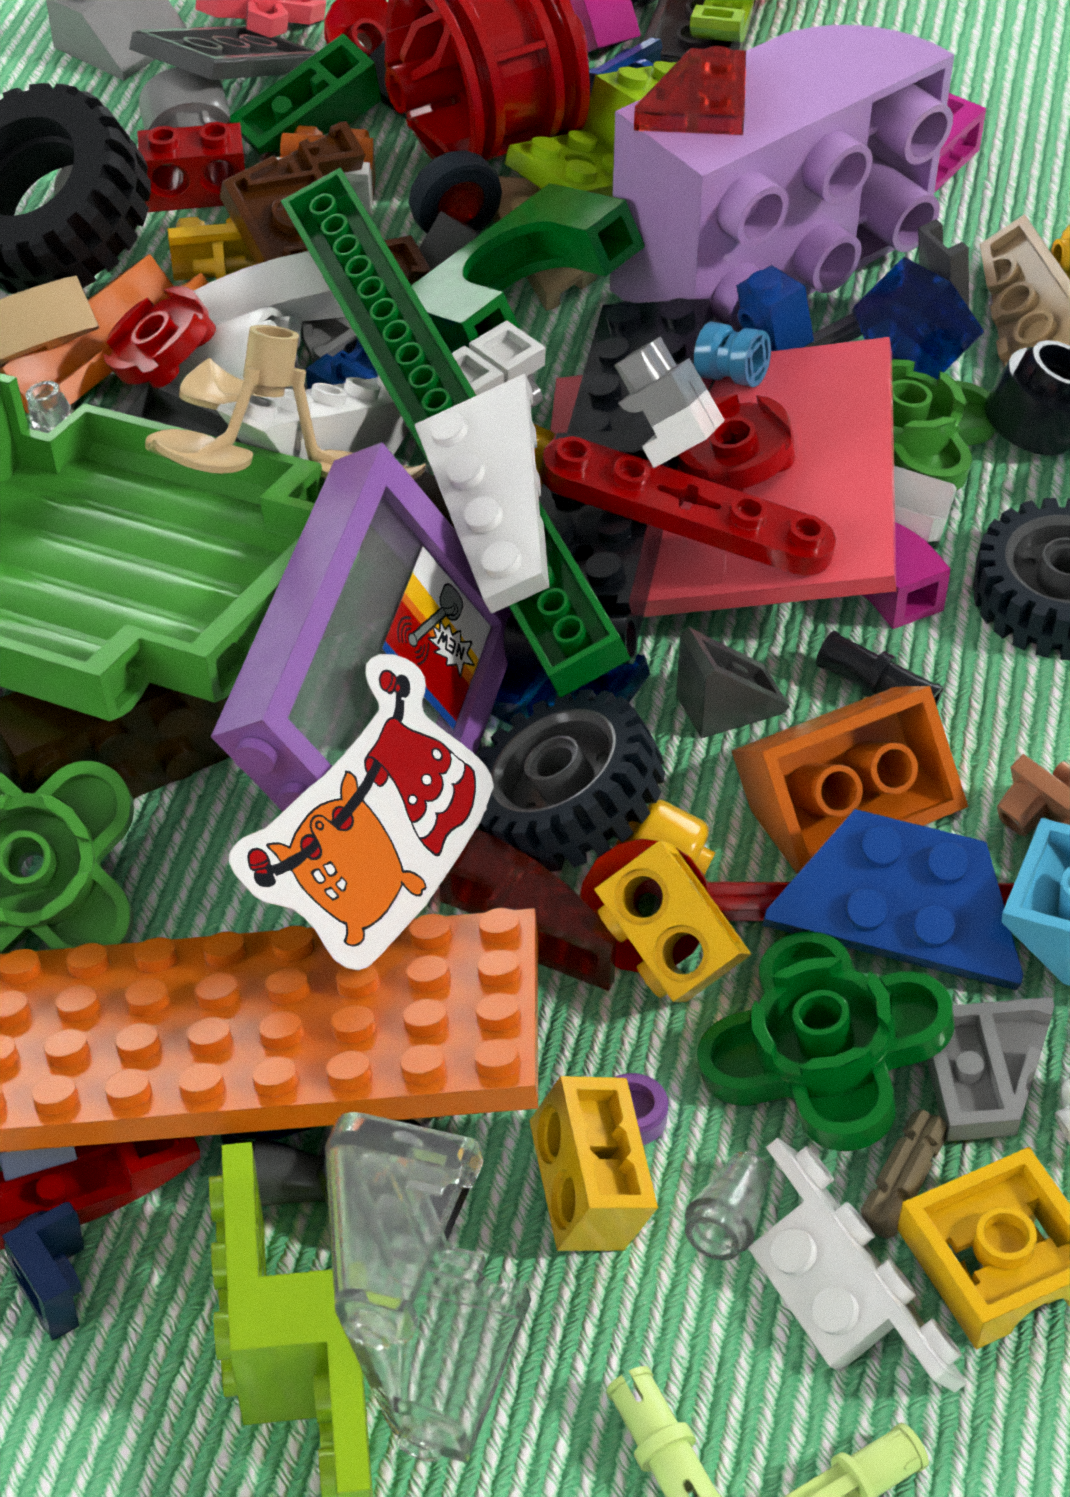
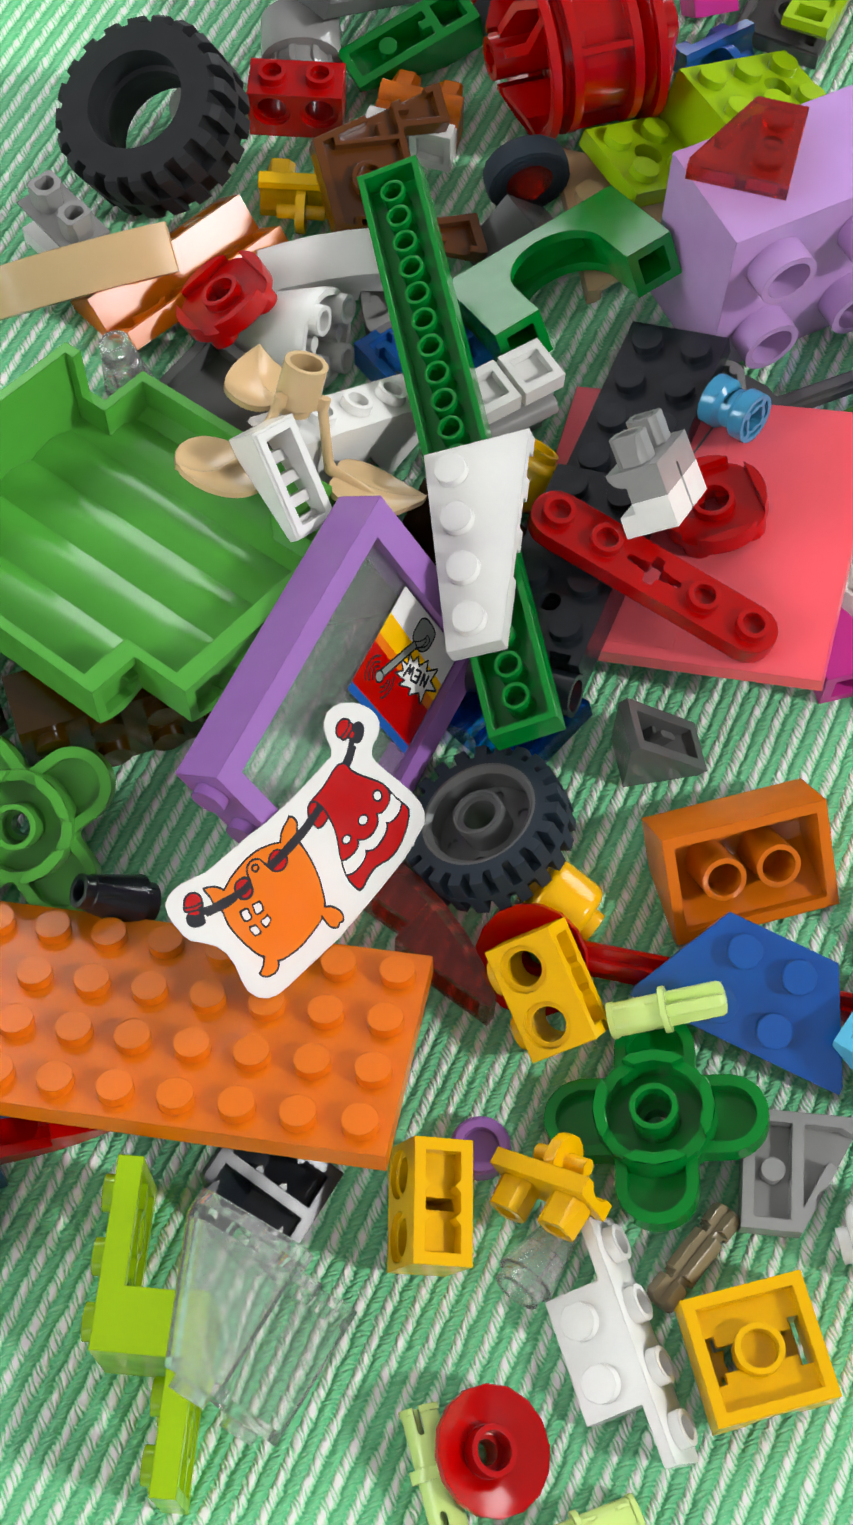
camera: 10 degrees right, 15 degrees up
(152, 916) = (117, 896): none -> black cone
(261, 431) = (261, 467): none -> white slope
(285, 1173) = (174, 1159): dark grey cone -> none
(724, 1112) = (553, 1175): none -> yellow hips
(727, 1406) = (514, 1448): none -> red dish
(776, 305) = (784, 363): blue brick -> none
(810, 918) = (666, 1009): none -> yellowish green axle
(867, 669) = (790, 755): black pin -> none

